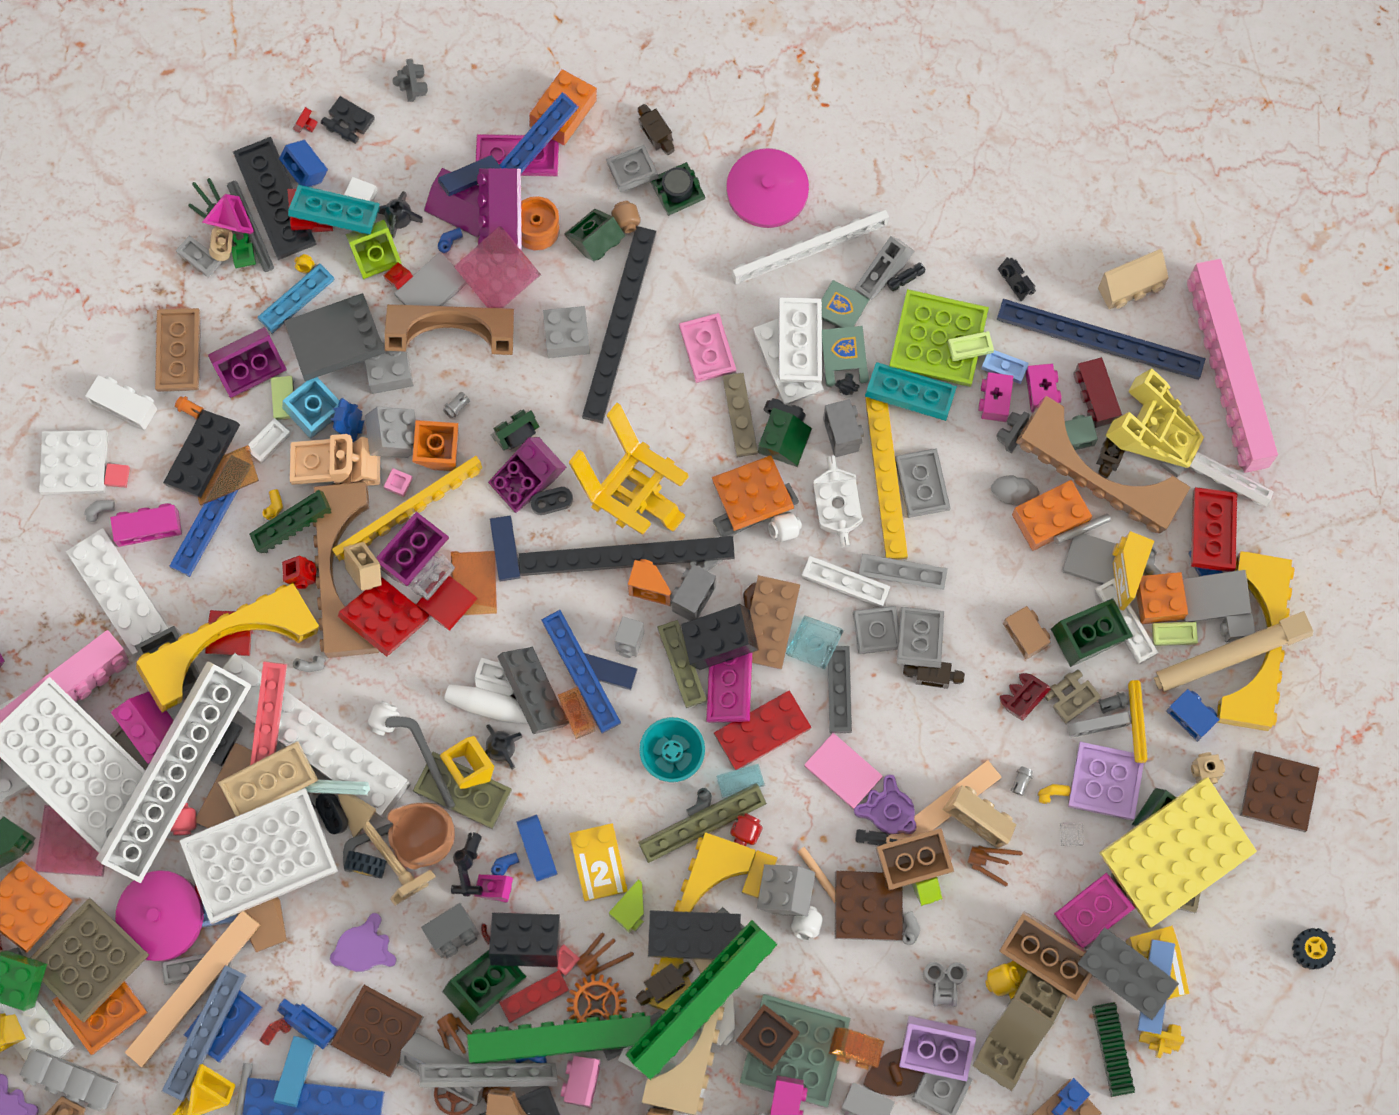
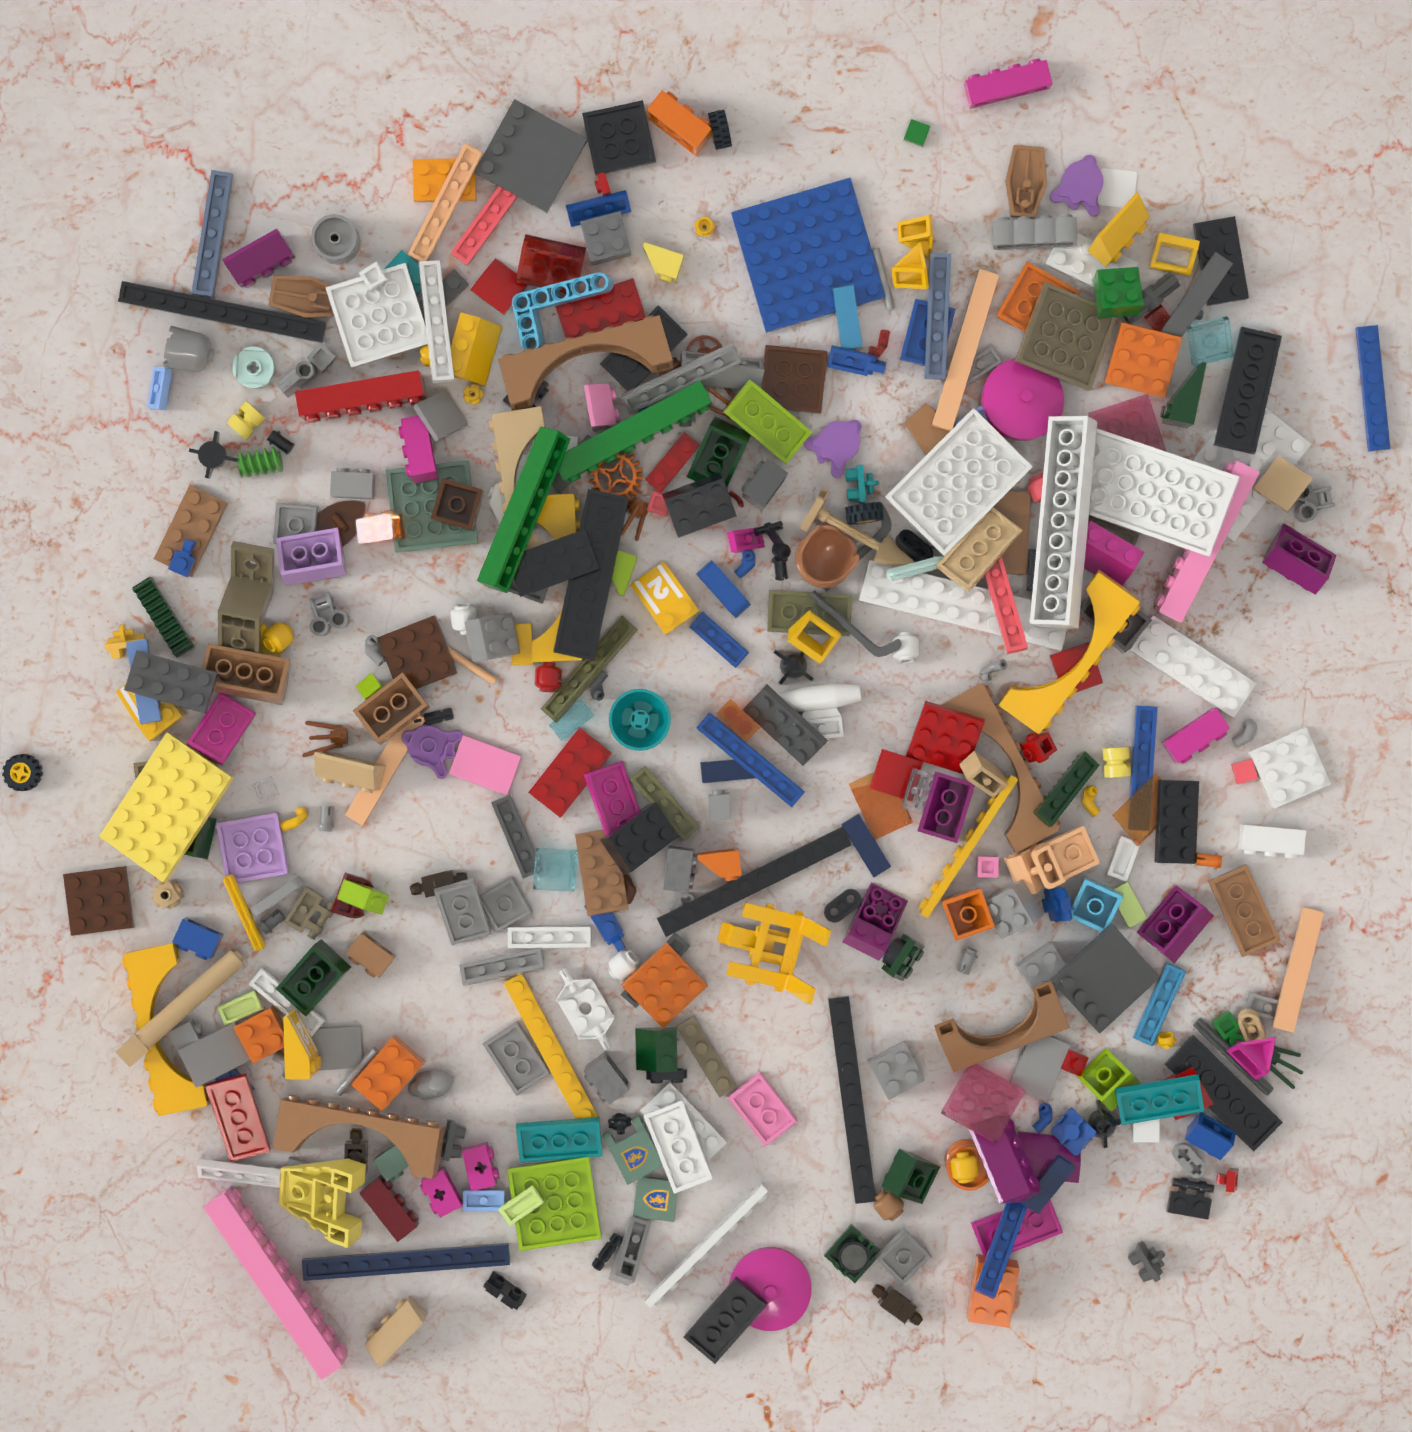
camera: 155 degrees right, 15 degrees up
(153, 277) = (1298, 970): none -> light nougat tile
(232, 528) = (1116, 762): none -> light yellow wheel
(330, 153) = (1192, 1157): none -> light grey beam
(355, 907) = (857, 474): none -> teal hips
(420, 996) = (767, 421): none -> lime plate
(426, 214) = (1073, 1132): none -> blue piece
(540, 216) = (964, 1167): none -> yellow head
(562, 801) = (719, 639): none -> blue tile
(664, 983) = (563, 514): dark brown piece -> none
(673, 890) = (588, 593): none -> black plate
(784, 565) = (609, 929): none -> blue hinge
(819, 174) = (725, 1320): none -> black plate
(1012, 688) = (363, 896): none -> lime slope

